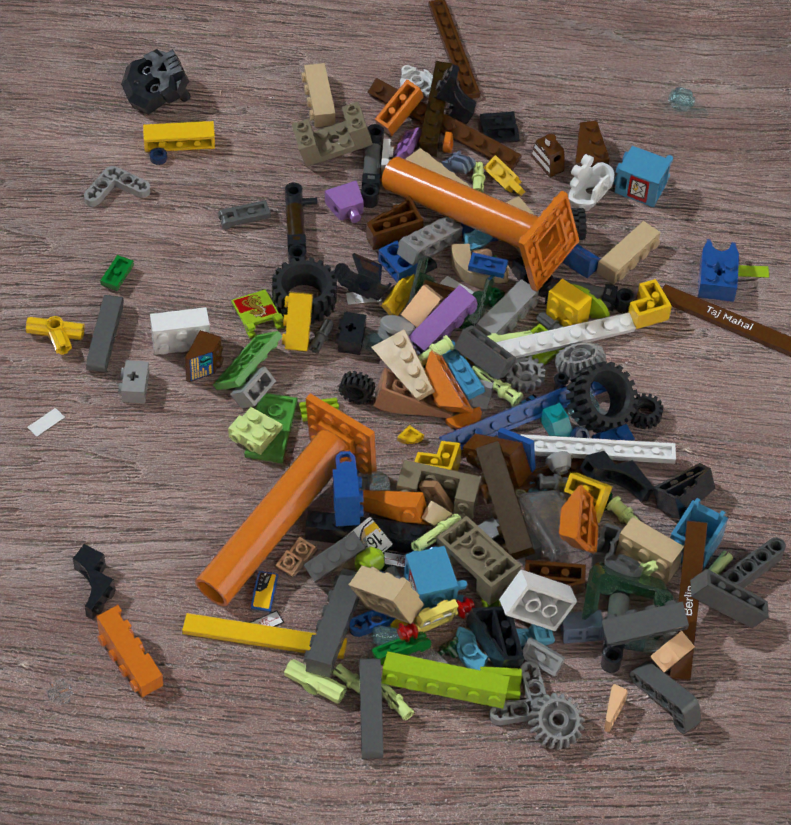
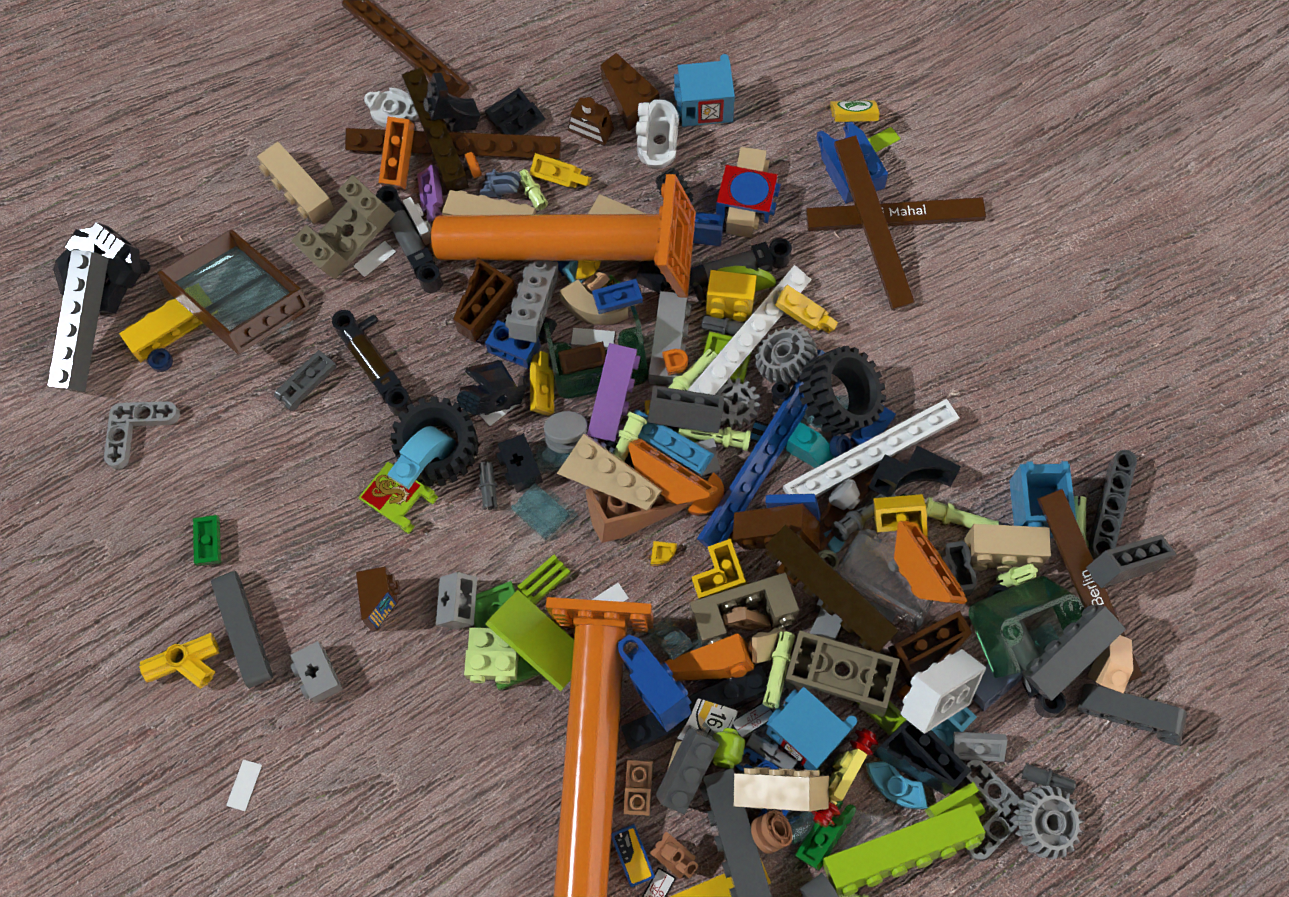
camera: 25 degrees left, 15 degrees up
(122, 102) = (78, 320): none -> dark grey brick
(177, 329) = (327, 579): white brick -> none
(234, 137) = (234, 291): none -> window
(247, 361) = (429, 570): bright green plate -> none
(284, 285) = (418, 452): none -> medium azure arch
(287, 429) = (535, 638): none -> lime tile
(290, 602) = (674, 856): none -> nougat hips
(297, 321) = (455, 489): yellow brick -> none
(342, 167) = (374, 258): none -> white sticker
(342, 364) = (540, 511): none -> clear light blue plate
(345, 201) = (409, 300): medium lavender torso -> none
(357, 387) = (571, 531): black tyre -> none
(364, 619) = (771, 832): none -> nougat wheel
(422, 305) = (579, 387): light nougat brick -> none
(449, 648) = (874, 798): dark green plant -> none
(481, 241) = (586, 269): none -> yellow tile
(496, 296) = (647, 325): dark green plant -> none
(500, 324) = (675, 361): none -> orange tile
(568, 691) = (1048, 778): none -> dark grey axle
(615, 342) = (805, 310): none -> yellow hinge
(616, 702) = (1089, 756): light nougat slope -> none
(623, 565) = (1001, 589): dark grey tile -> none
(629, 250) = (748, 191): none -> panel
(651, 305) = (814, 243): yellow brick -> none
(651, 404) = (896, 366): black tyre -> none
(679, 491) = (992, 451): black wedge -> none
(704, 313) = (874, 223): none -> reddish brown tile
(744, 239) = (854, 110): none -> yellow slope

